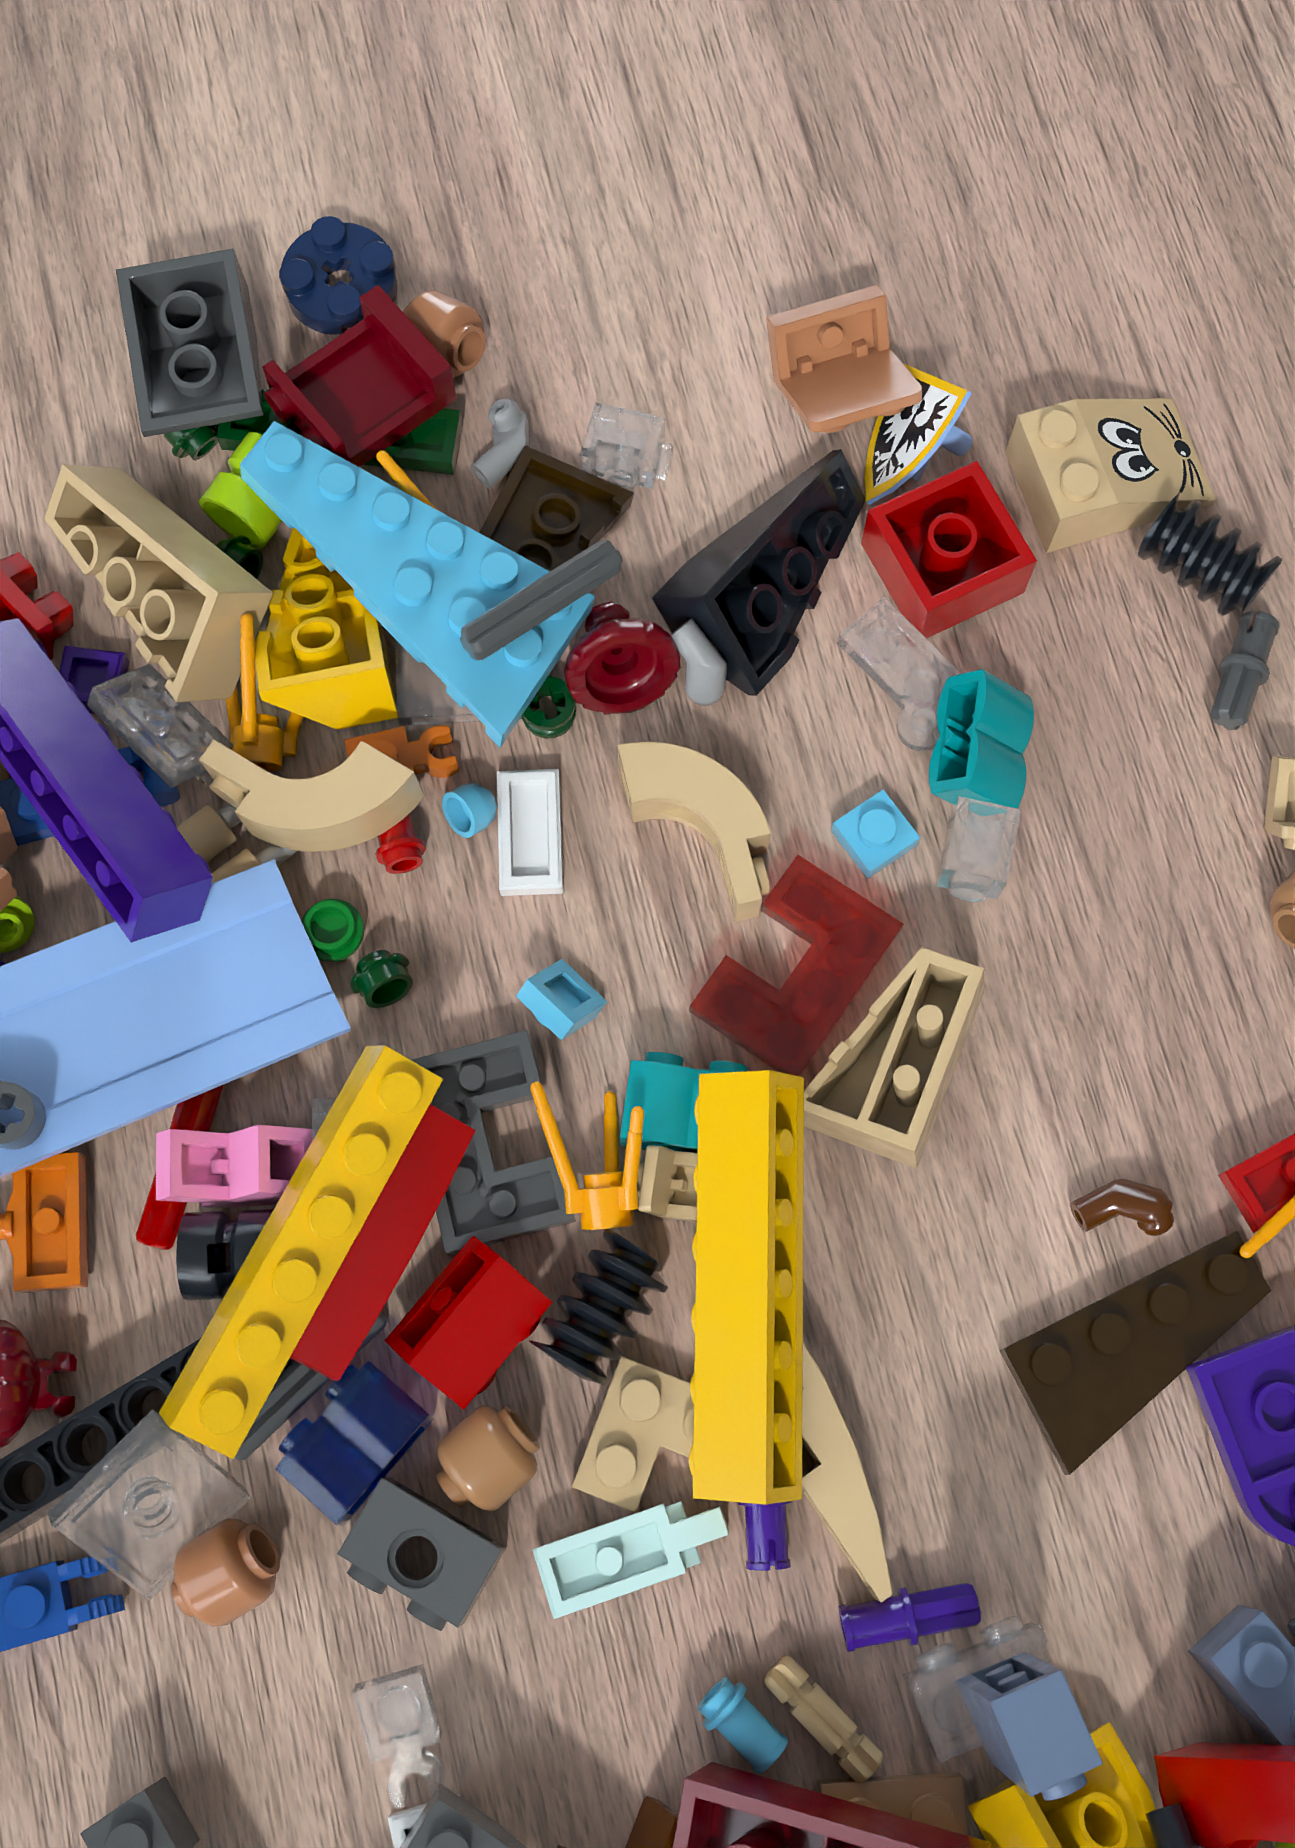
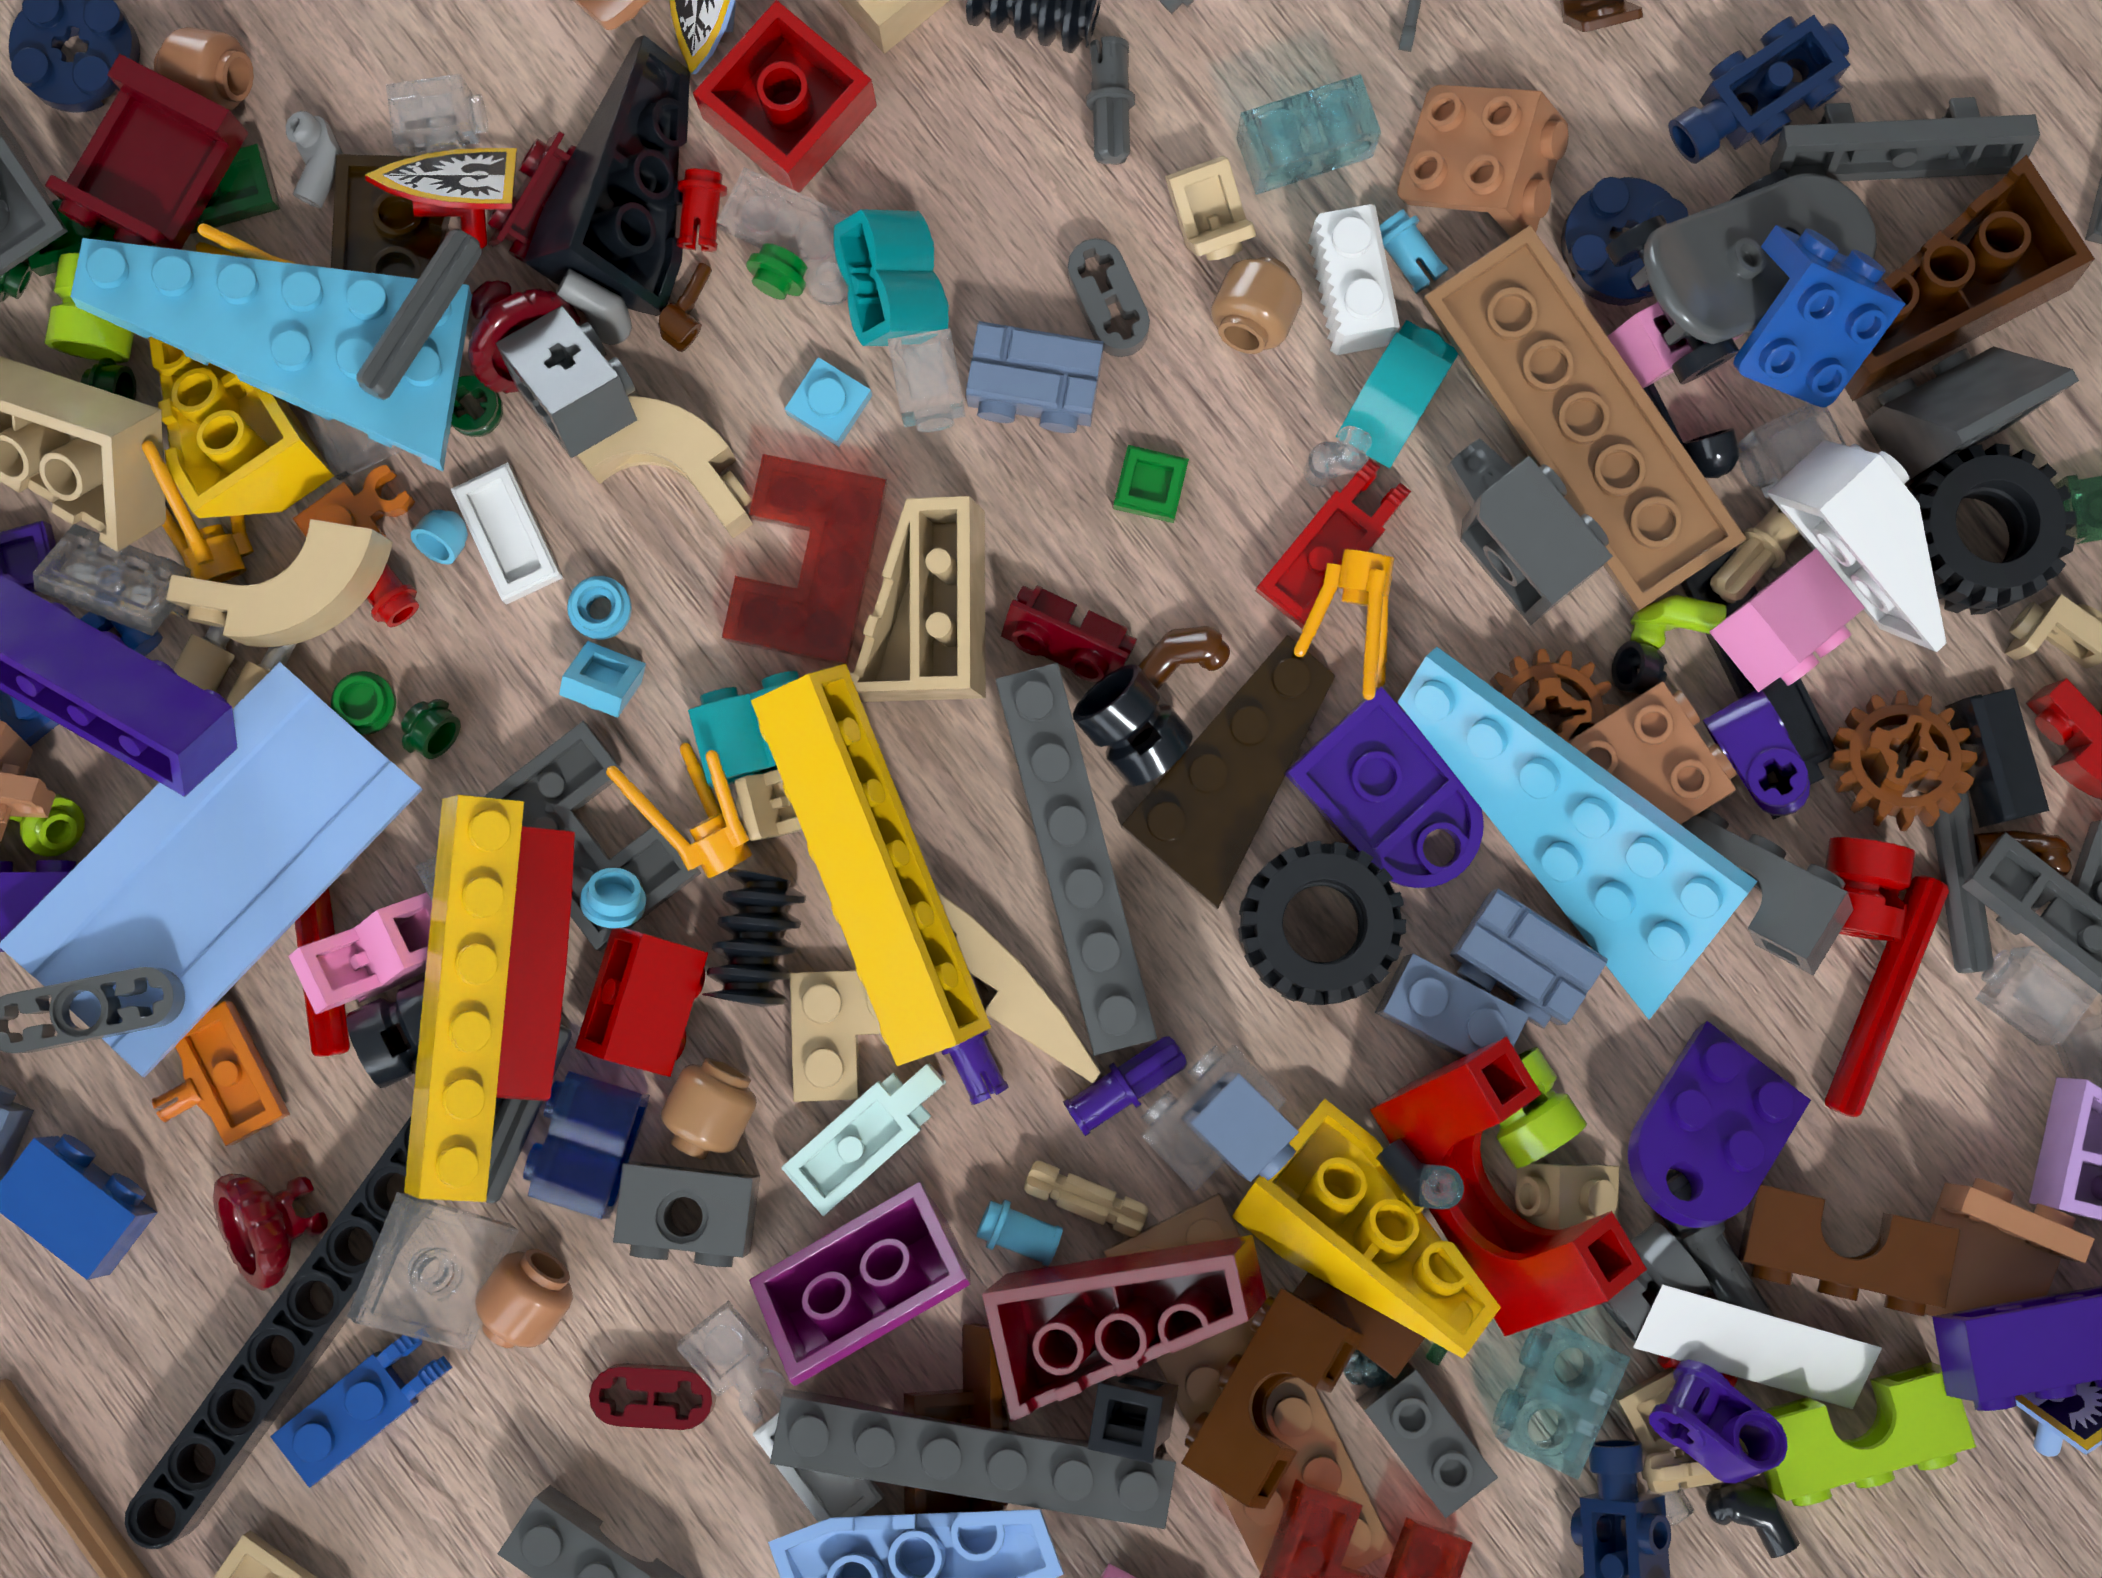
camera: 20 degrees left, 10 degrees up
(297, 1747) = (651, 1412): none -> dark red beam
(484, 1210) = (613, 898): none -> medium azure plate
(564, 1711) = (860, 1282): none -> magenta slope
(581, 915) = (583, 597): none -> medium azure plate
(616, 508) = (453, 184): none -> shield
(650, 714) = (569, 380): none -> dark grey brick
(661, 560) = (543, 169): none -> dark red hinge
(764, 707) = (675, 322): none -> reddish brown hand
(829, 615) = (700, 207): none -> red pin
(876, 699) = (777, 271): none -> green plate
(947, 1370) = (1076, 859): none -> dark grey brick
(1038, 1166) = (1041, 627): none -> dark red hinge
(1058, 1265) = (1139, 733): none -> black wheel
(1081, 887) = (1034, 376): none -> sand blue brick
(1152, 1032) = (1150, 483): none -> green tile
(1189, 844) = (1121, 291): none -> dark grey beam
(1230, 1538) = (1376, 912): none -> black tyre

